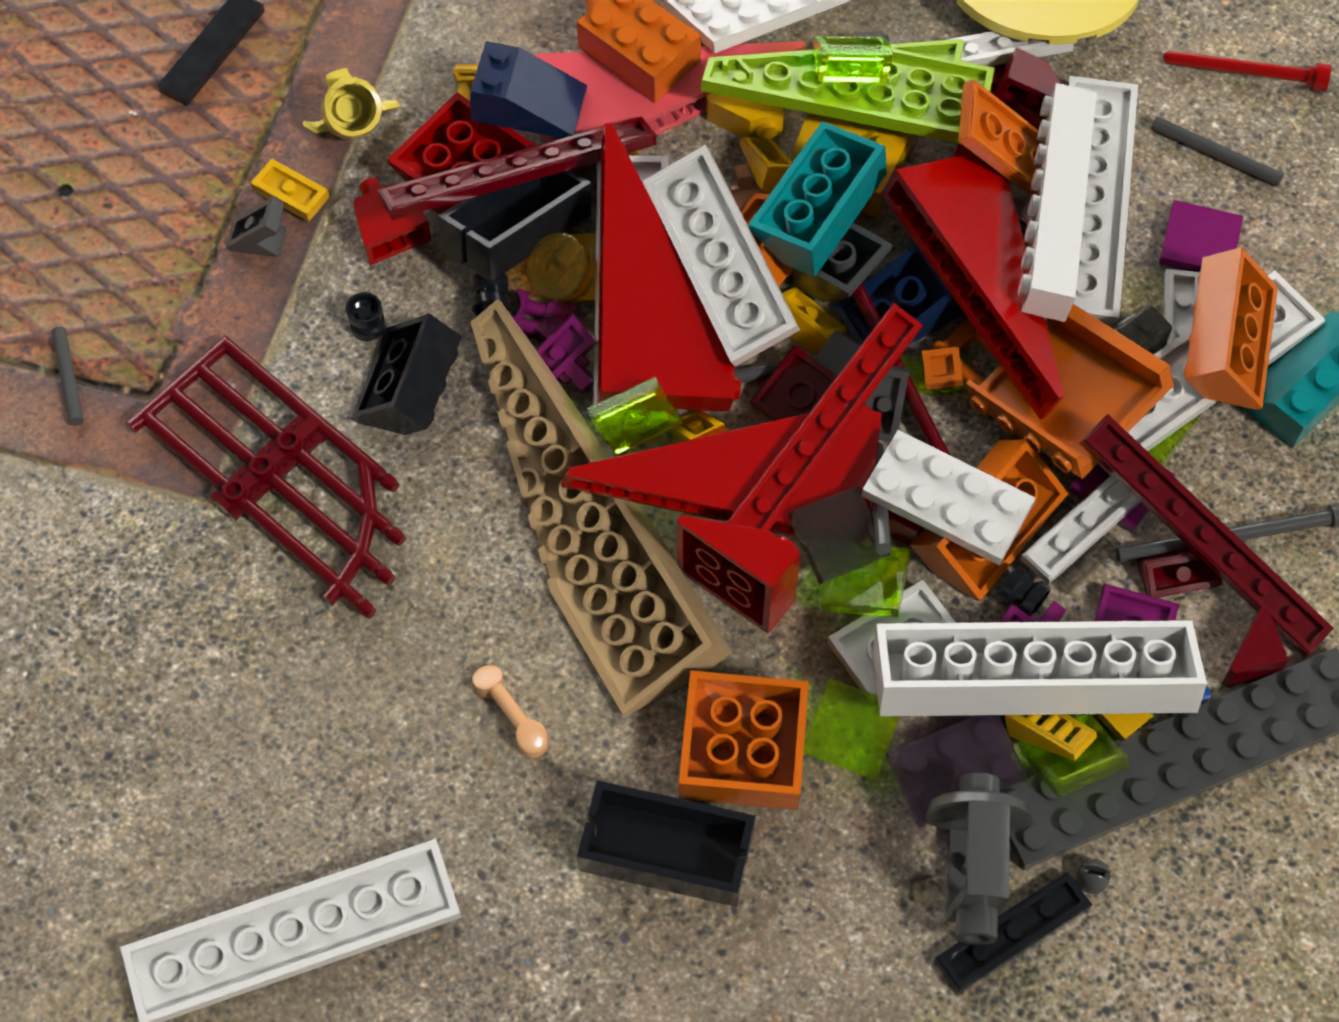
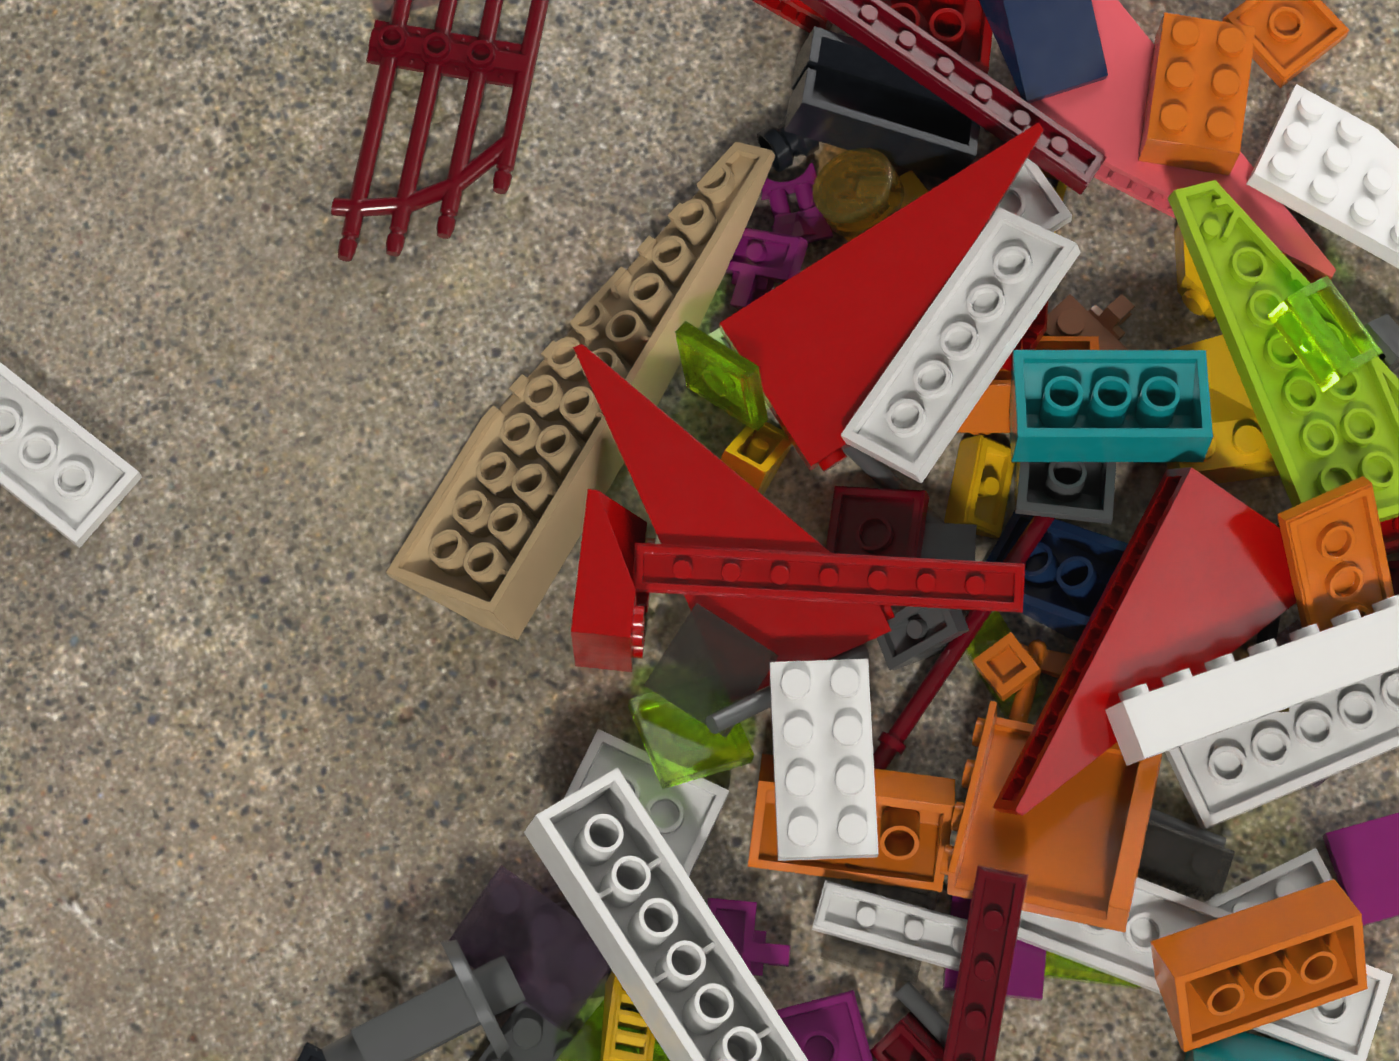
camera: 55 degrees right, 10 degrees up
(365, 316) = (677, 23): black wheel -> none
(408, 376) = (635, 122): black slope -> none
(530, 734) = (305, 494): light nougat bar -> none
(666, 843) = (261, 699): black piece -> none
(743, 740) = (422, 709): orange slope -> none
(765, 161) = (1148, 326): yellow slope -> none
(850, 730) = (497, 809): clear neon green tile -> none
(1023, 591) = (784, 903): black wheel -> none

